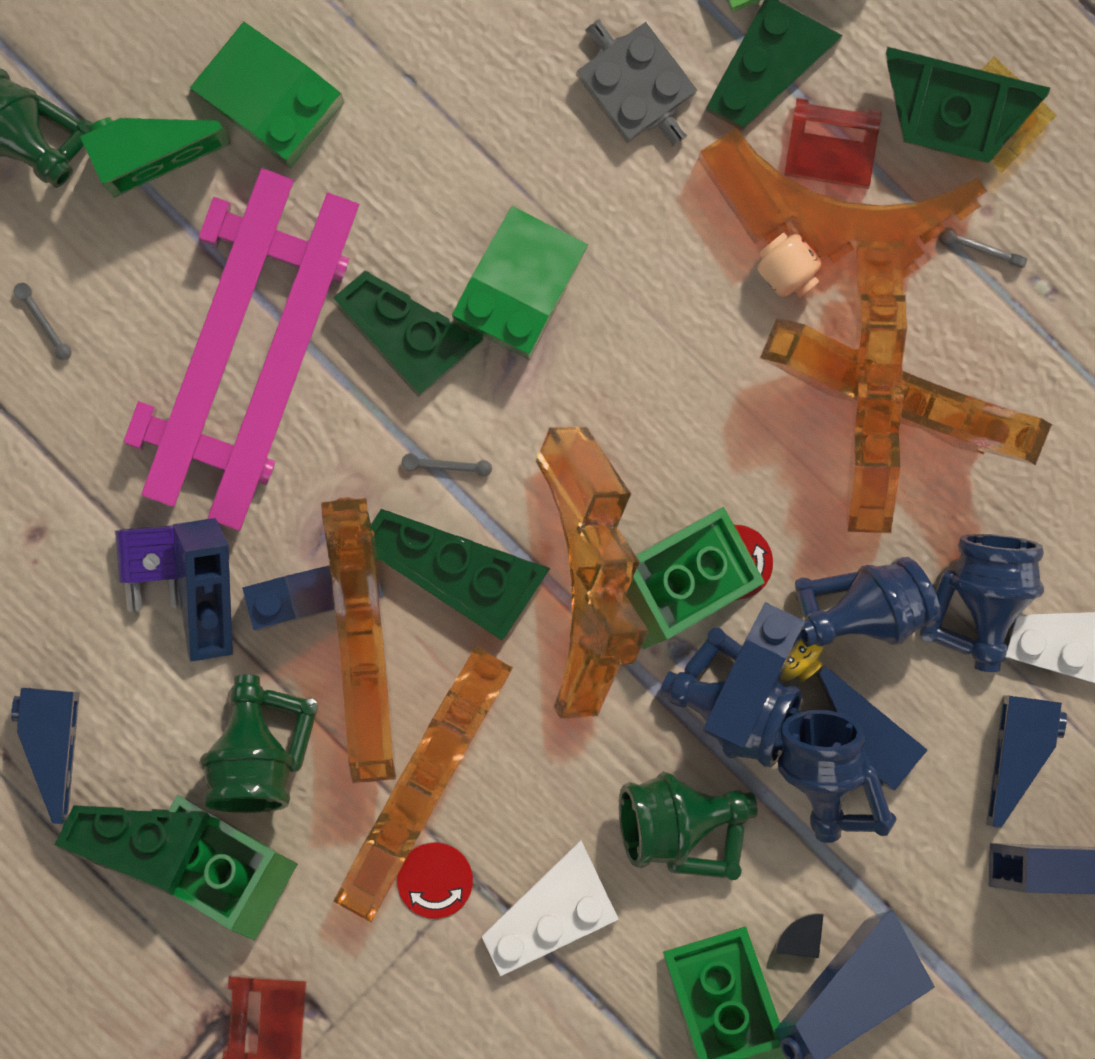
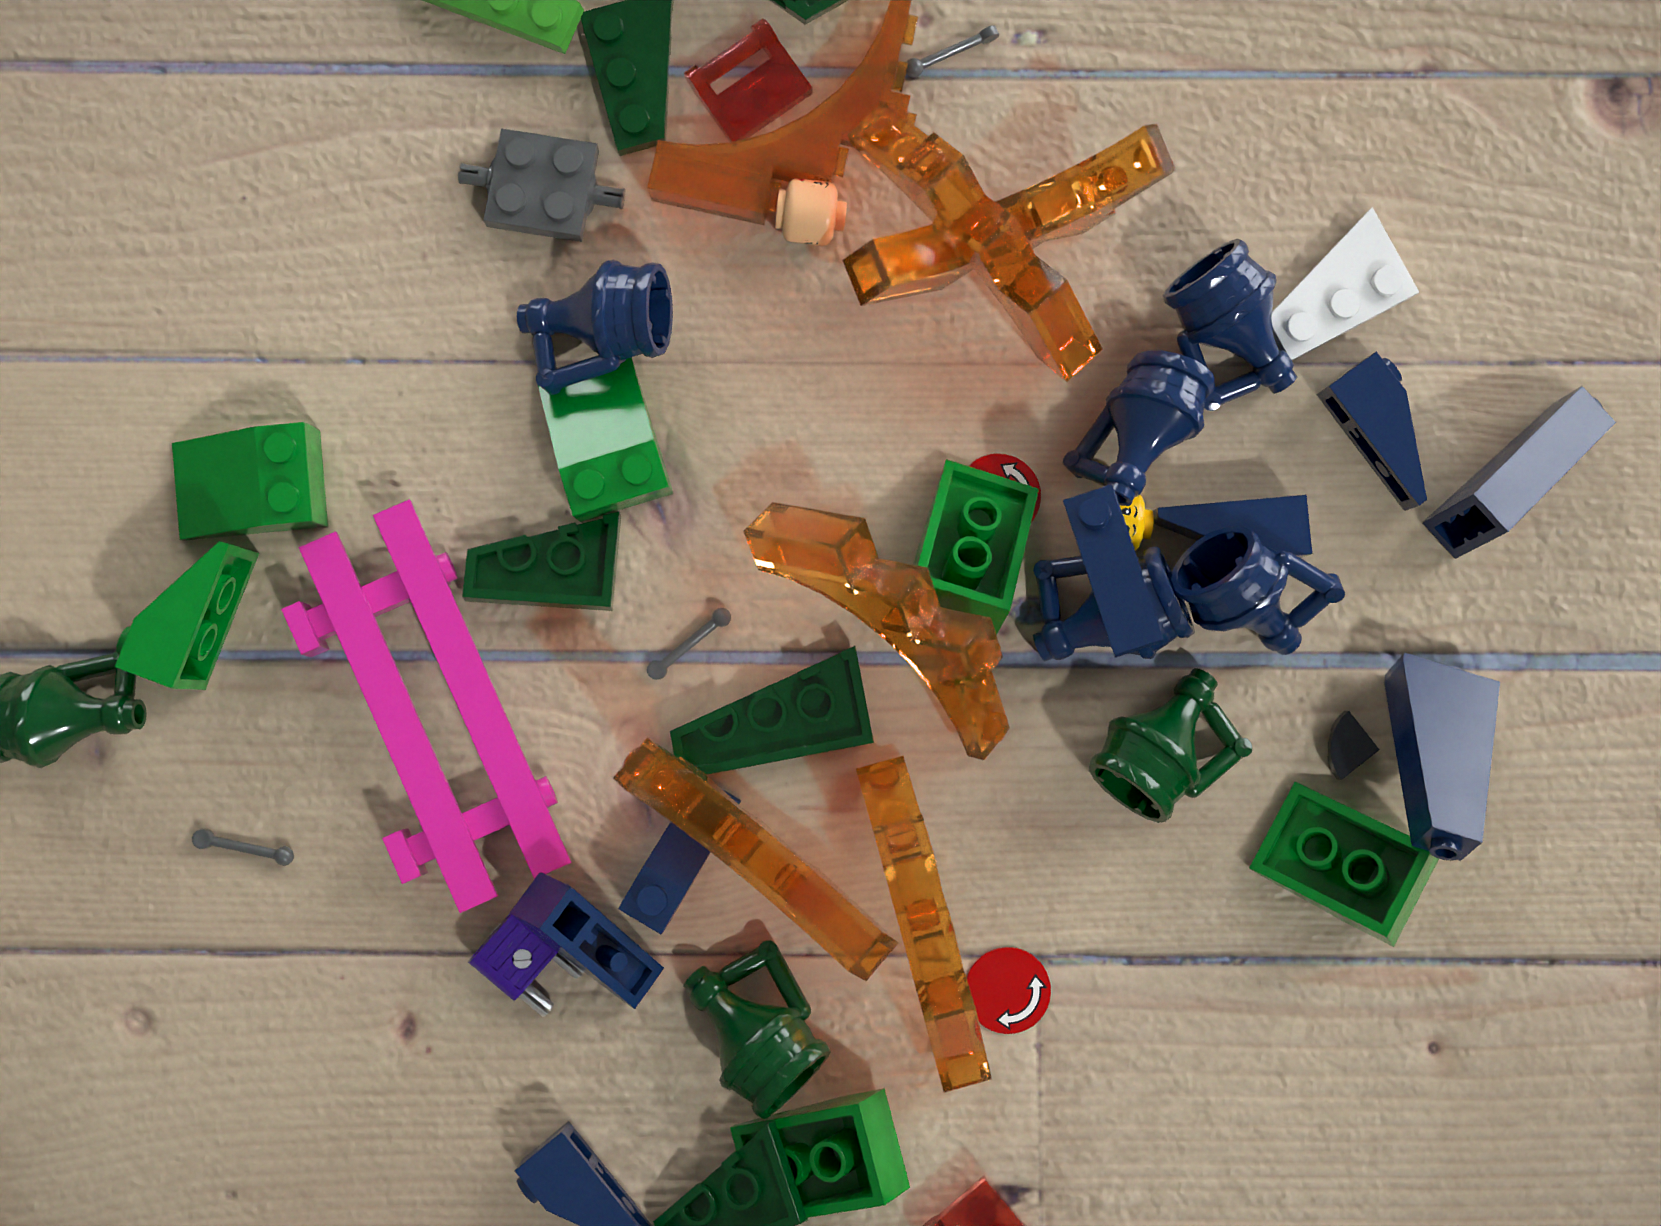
camera: 40 degrees left, 0 degrees up
(551, 914) = (1130, 925): white wing -> none
(601, 211) = (615, 314): none -> dark blue piece

